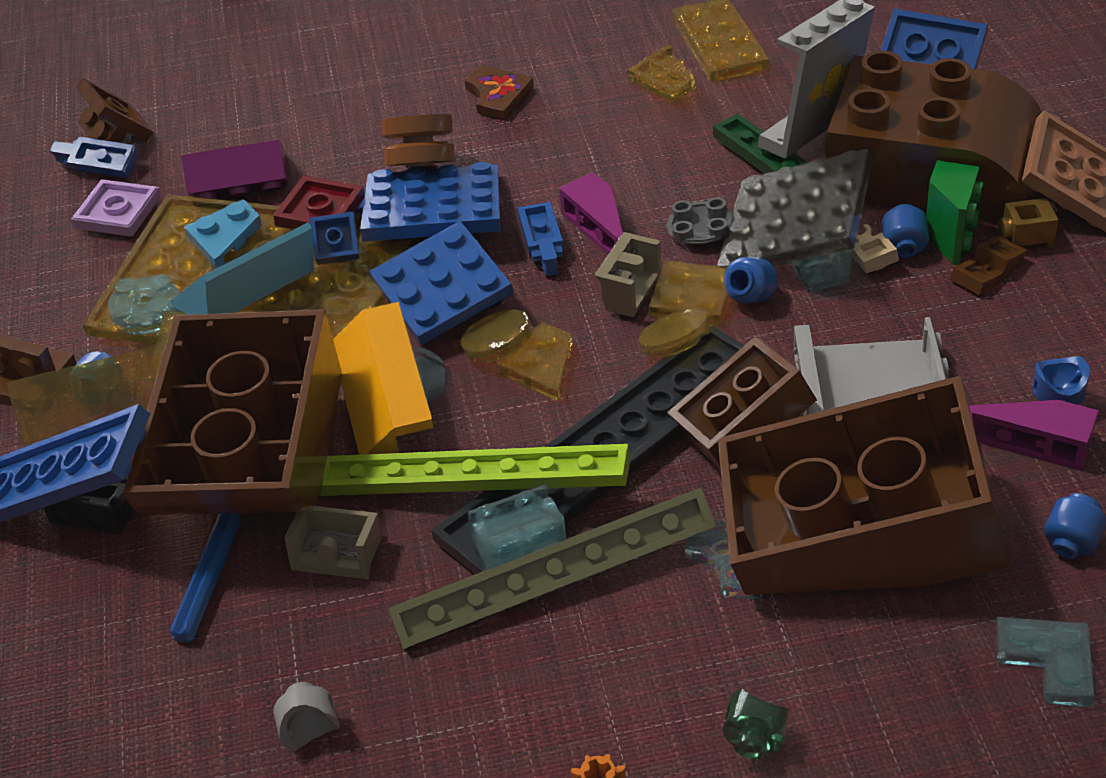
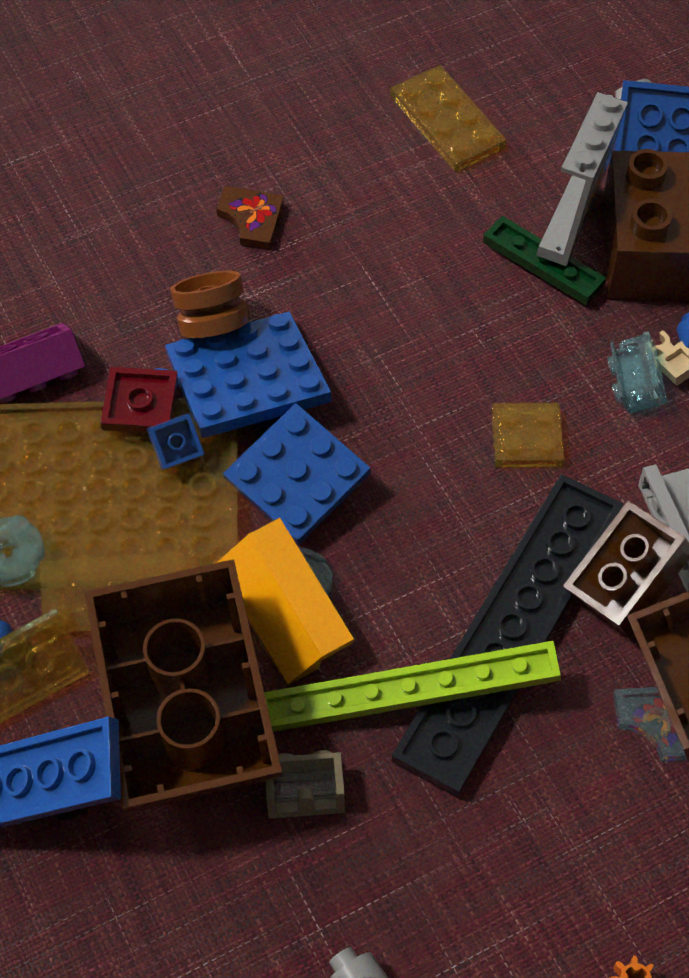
camera: 20 degrees left, 15 degrees up
(205, 577) = (195, 859): blue axle -> none
(223, 230) = (51, 446): dark azure wing -> none
(250, 275) = (107, 508): medium azure slope -> none
(496, 335) = (367, 521): clear yellow tile -> none
(516, 526) = (476, 743): clear light blue hinge -> none
(540, 360) = (415, 539): clear yellow wing -> none
(541, 235) = (365, 392): blue hinge -> none
(550, 568) = (514, 775): olive plate -> none
(592, 209) = (406, 355): magenta slope -> none
(629, 273) = (470, 429): dark tan window -> none
(663, 74) = (411, 174): clear yellow wing -> none
(674, 332) = (533, 489): clear yellow tile -> none
(699, 221) = (508, 351): dark grey dish -> none
(750, 280) = (582, 417): blue head -> none
(799, 210) = (603, 335): clear smoke plate -> none

